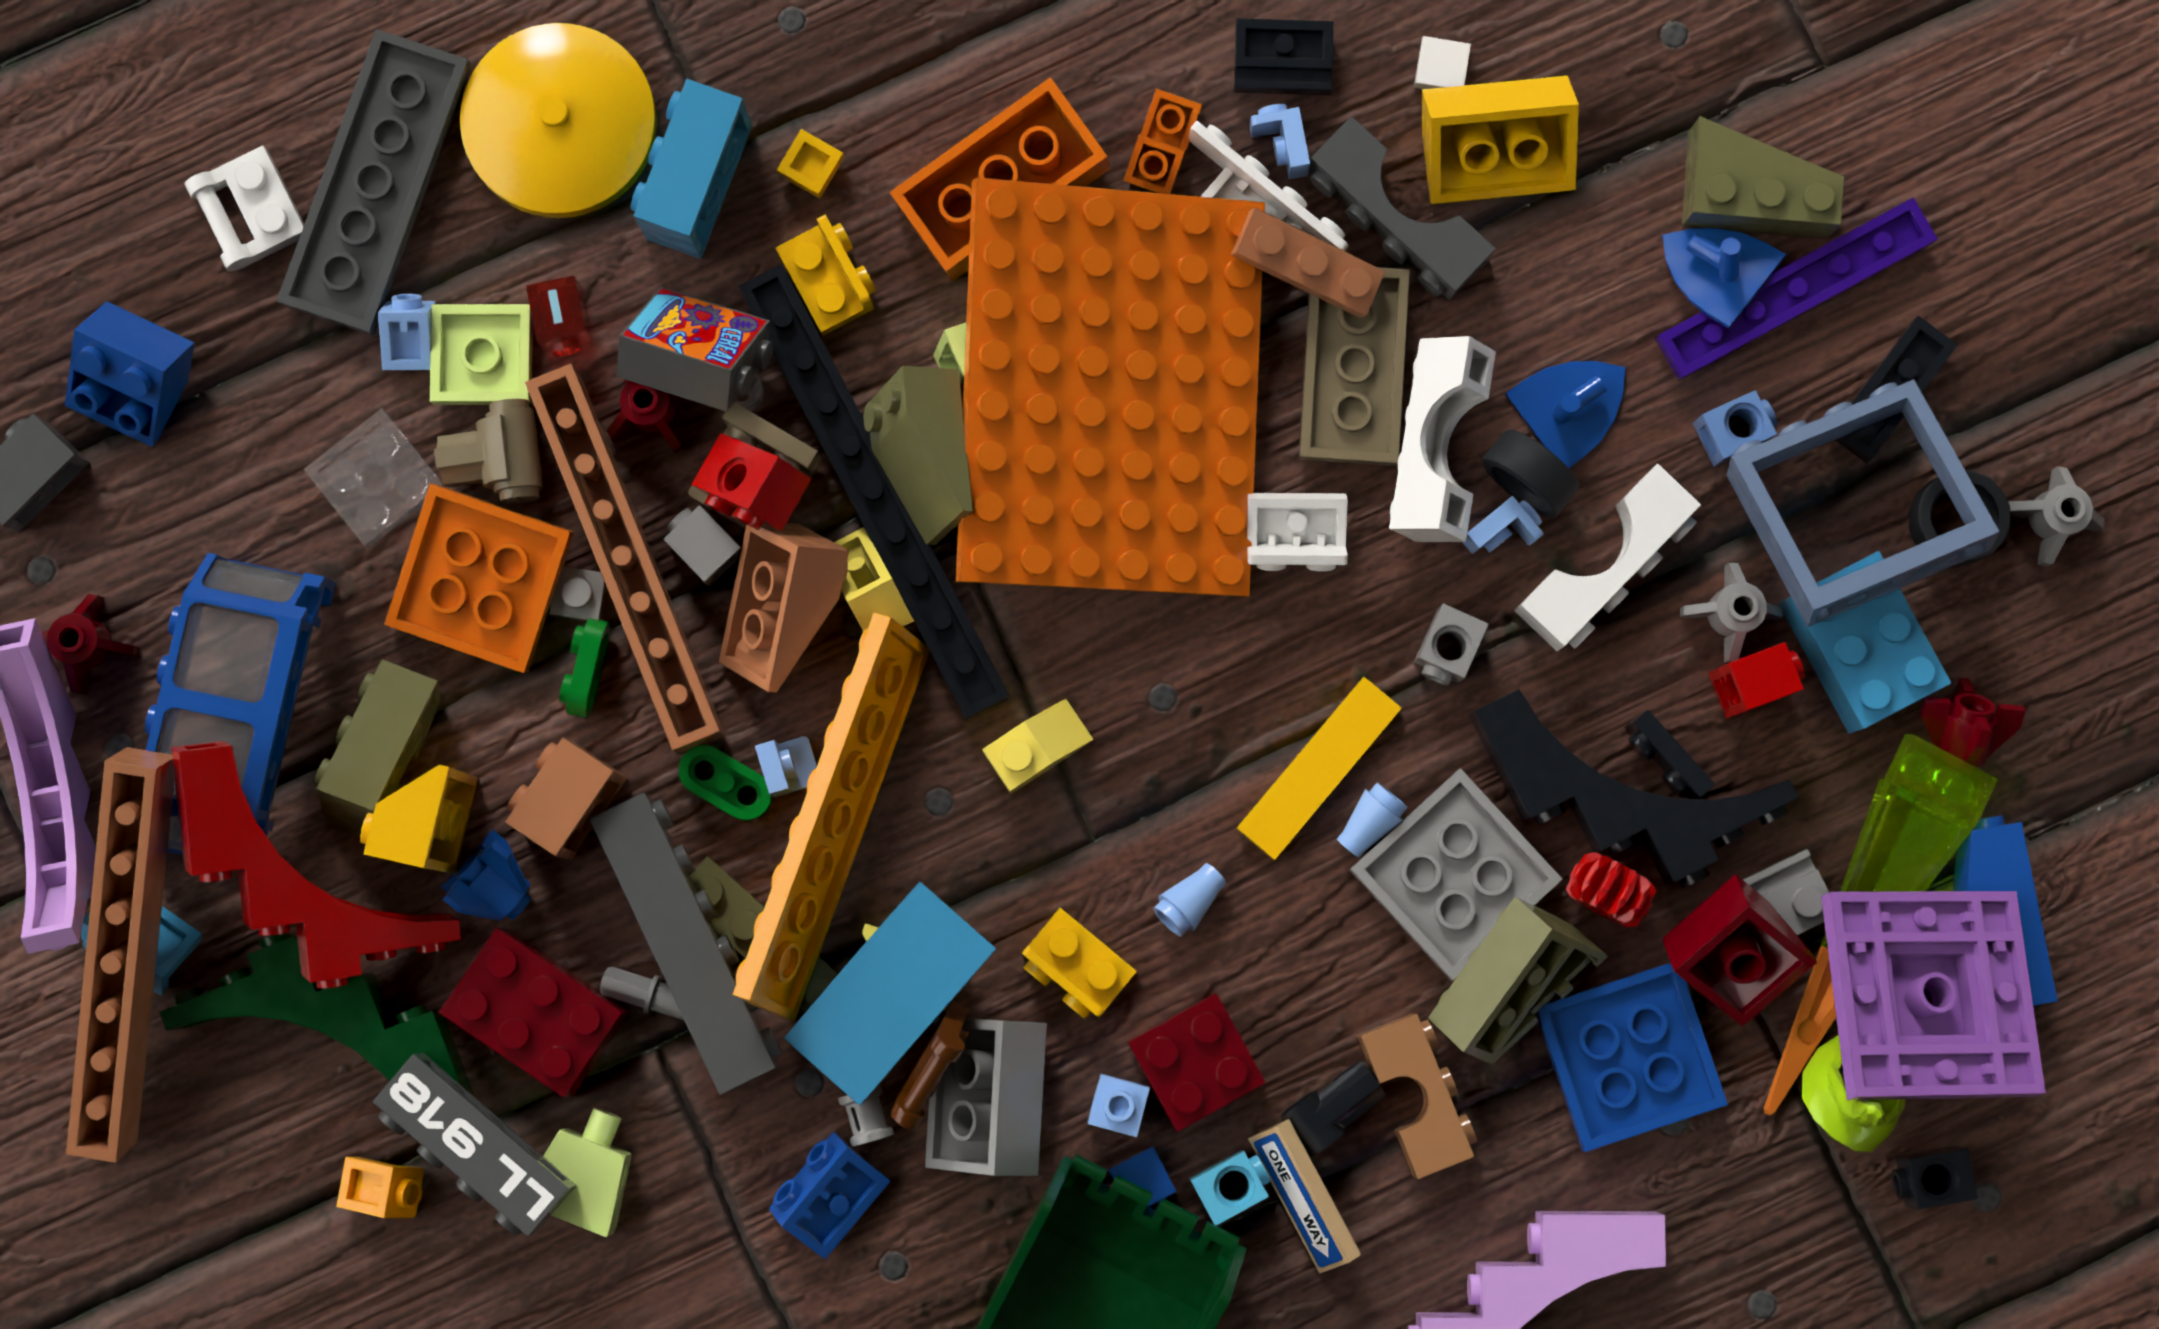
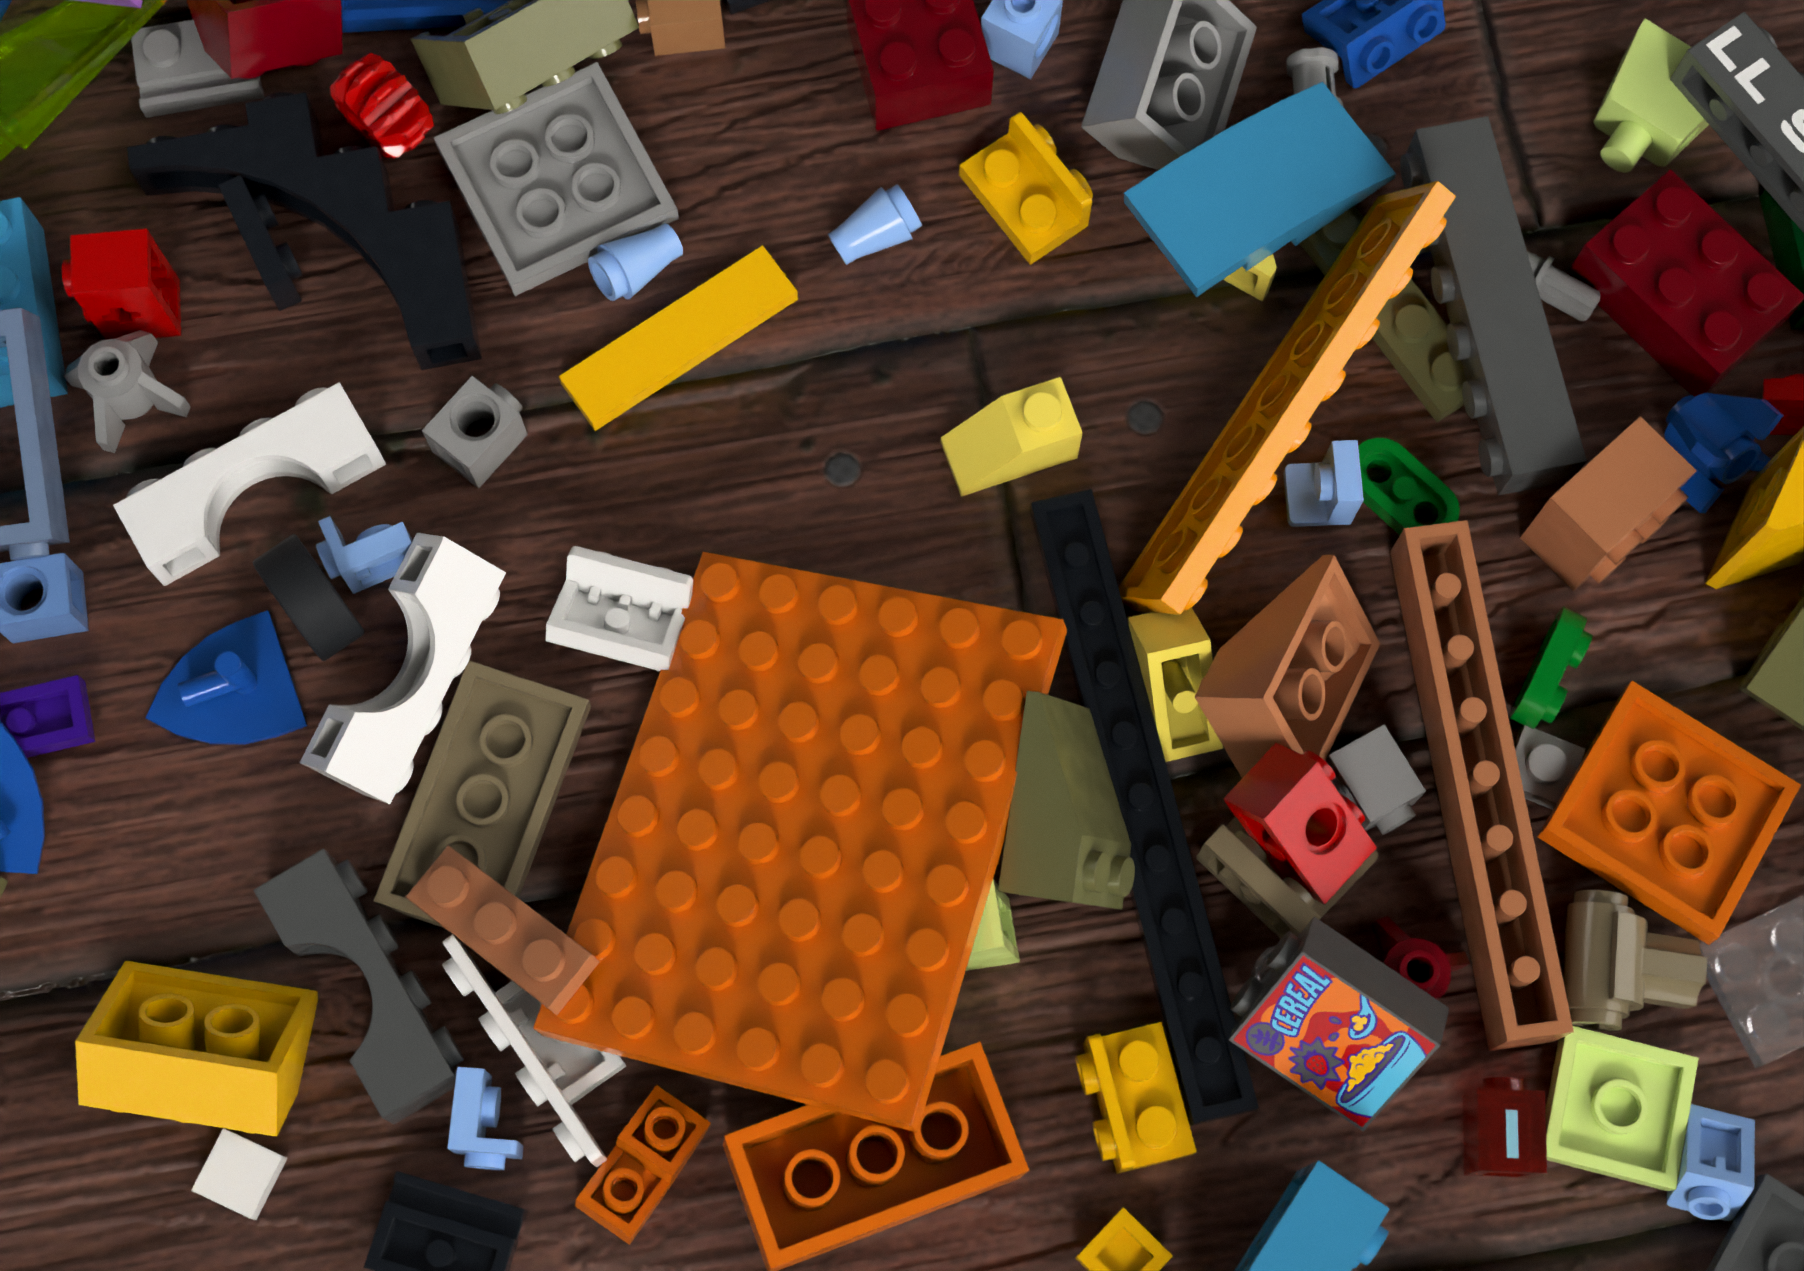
camera: 165 degrees left, 10 degrees down
(928, 1069) = (1232, 91): reddish brown plate -> none

